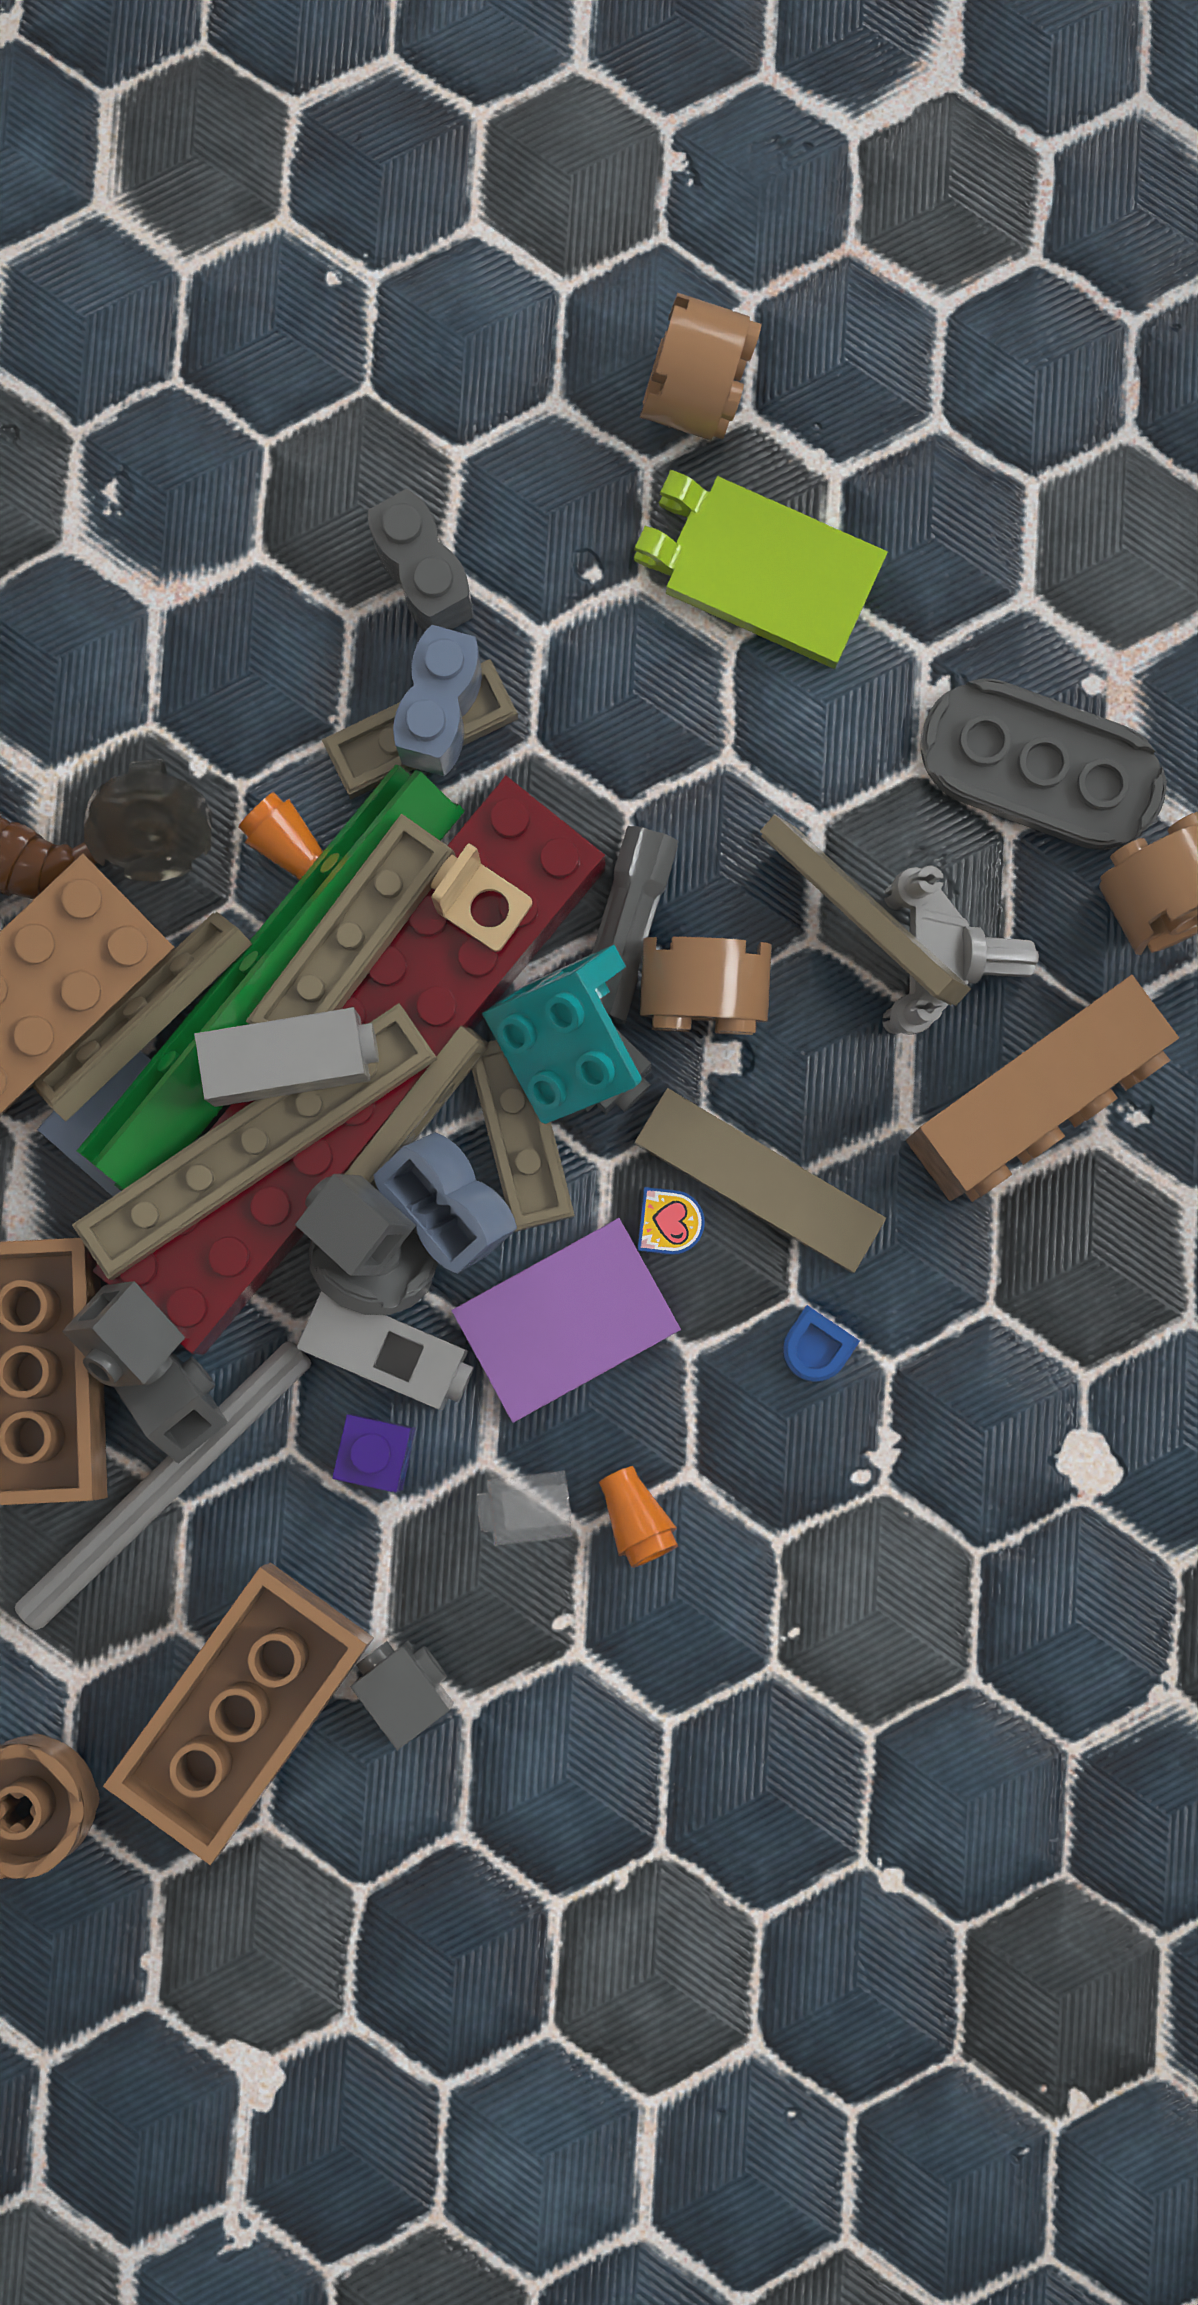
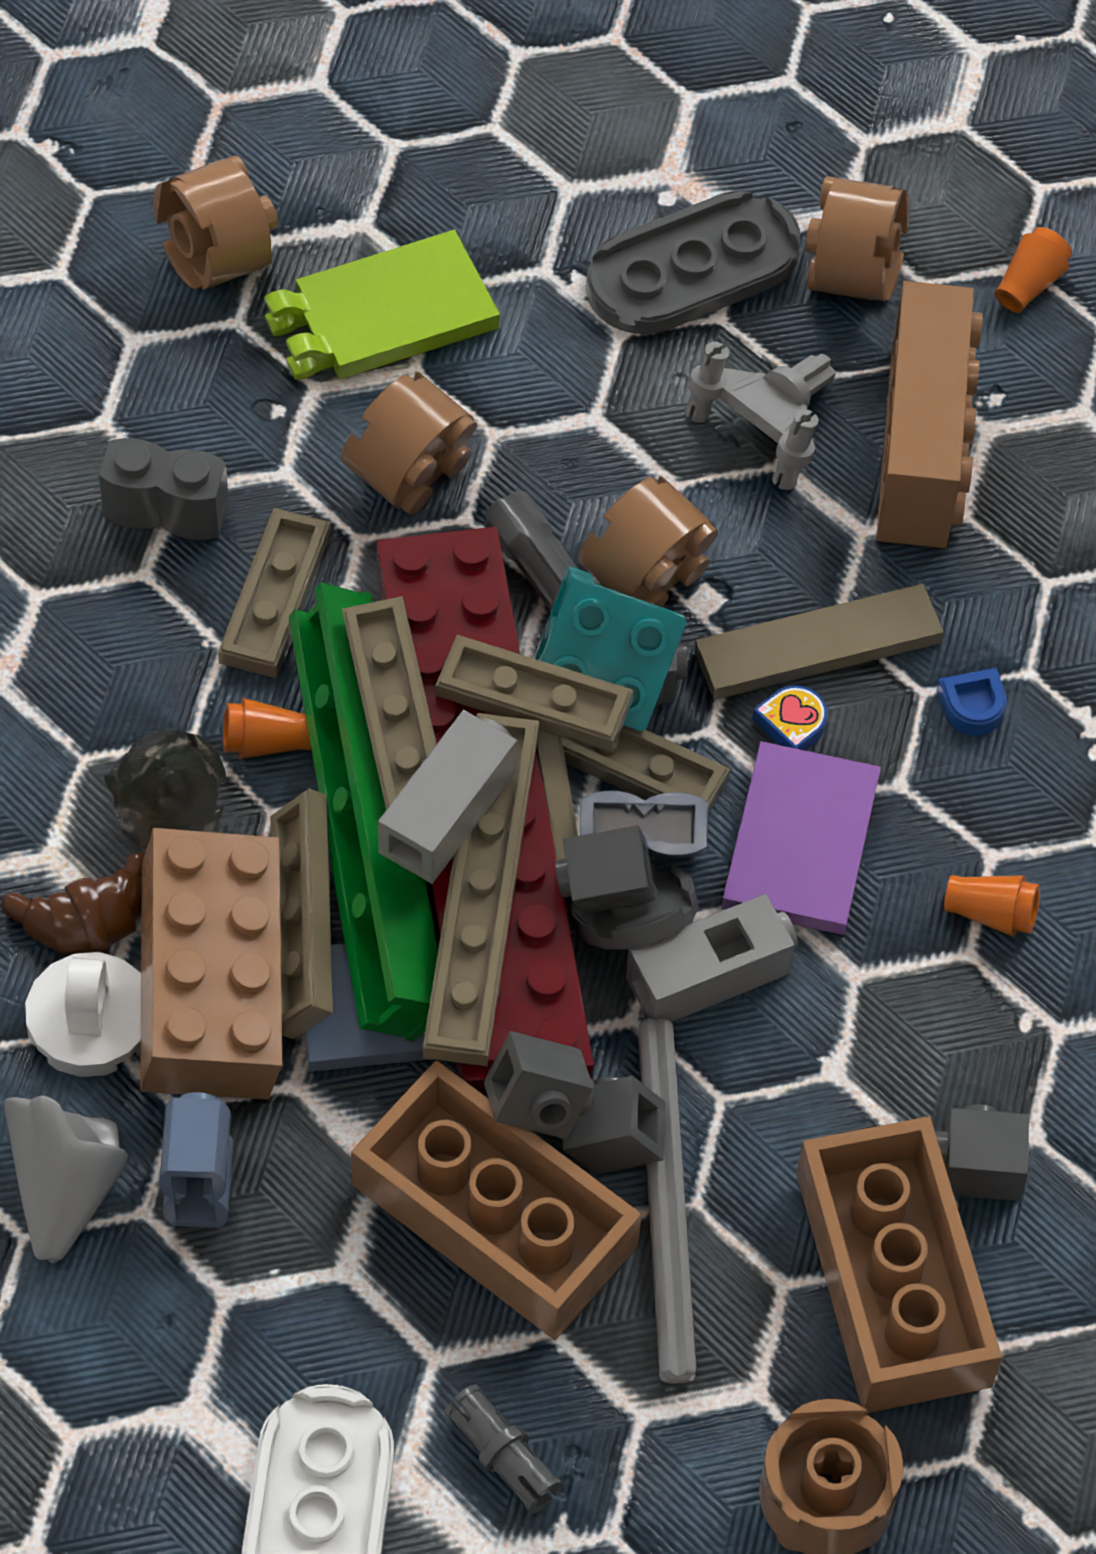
camera: 55 degrees left, 25 degrees down
(374, 1453) = (783, 1024): dark purple brick -> none
(430, 715) = (277, 542): sand blue brick -> none
(457, 886) = (432, 606): tan bracket -> none
(463, 1027) = (534, 690): none -> dark tan tile
(526, 1508) = (920, 959): clear brick -> none
(631, 711) = (410, 442): none -> medium nougat brick
(864, 911) = (694, 413): dark tan tile -> none

